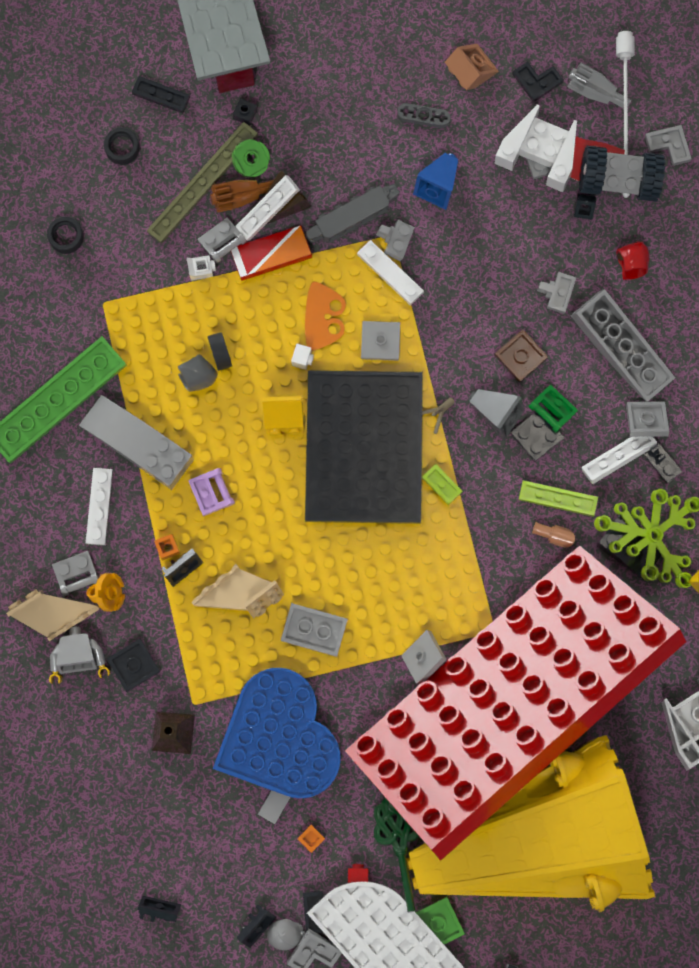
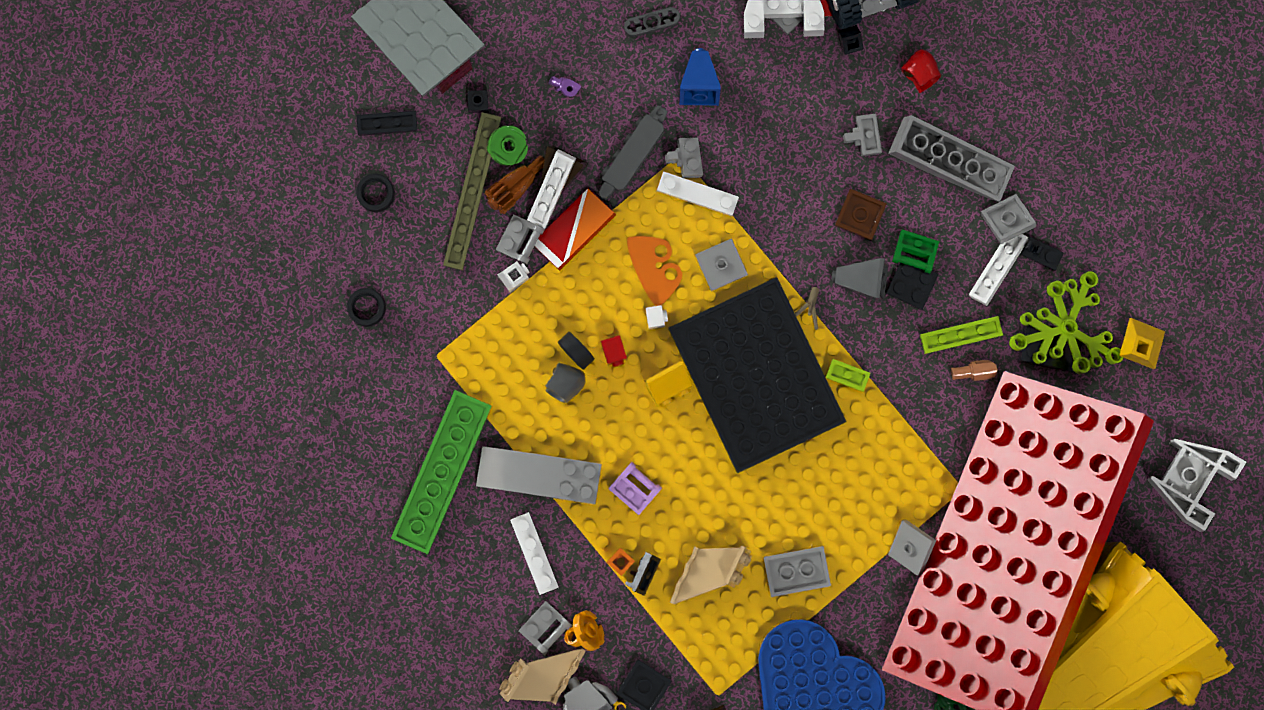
camera: 30 degrees left, 5 degrees up
(252, 368) = (614, 351): none -> red brick
(322, 131) = (562, 84): none -> medium lavender piece

